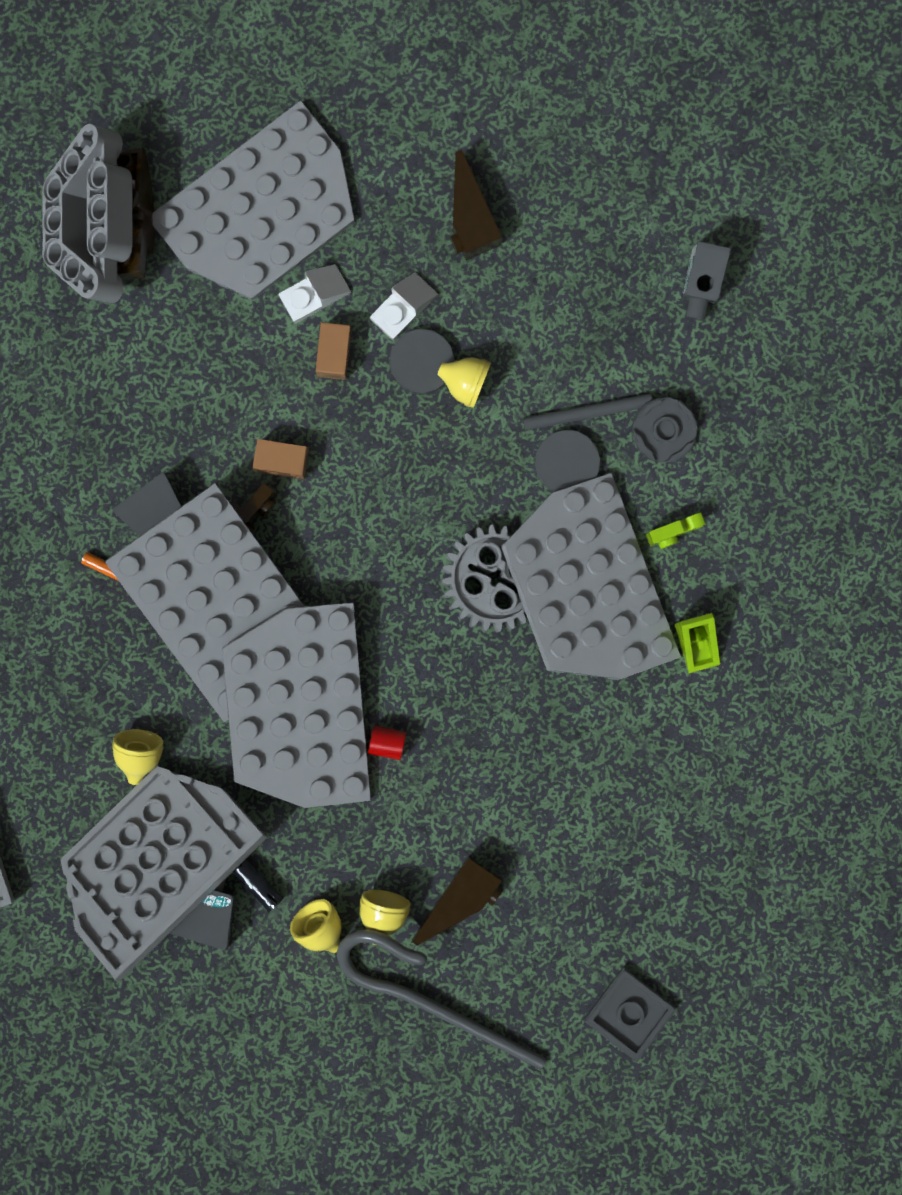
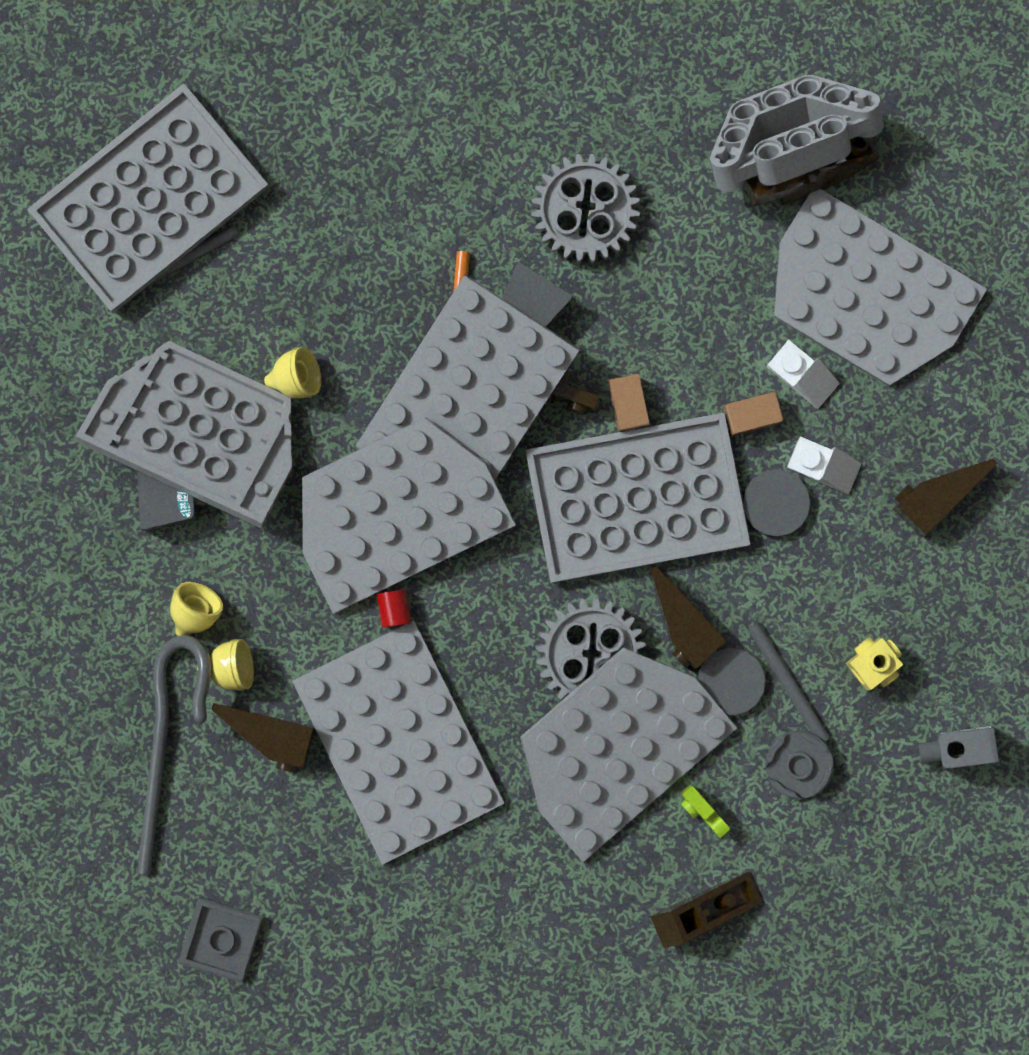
camera: 65 degrees right, 0 degrees up
(73, 456) = (614, 212): none -> light grey gear
(257, 885) = (213, 535): black pin -> none
(369, 484) = (637, 497): none -> light grey plate
(465, 378) = (774, 551): light yellow helmet -> none
(502, 484) = (686, 627): none -> dark brown slope
(510, 784) = (398, 742): none -> light grey plate
(596, 337) = (863, 665): none -> light yellow brick
(698, 642) = (602, 874): lime slope -> none
(765, 563) = (705, 910): none -> dark brown slope

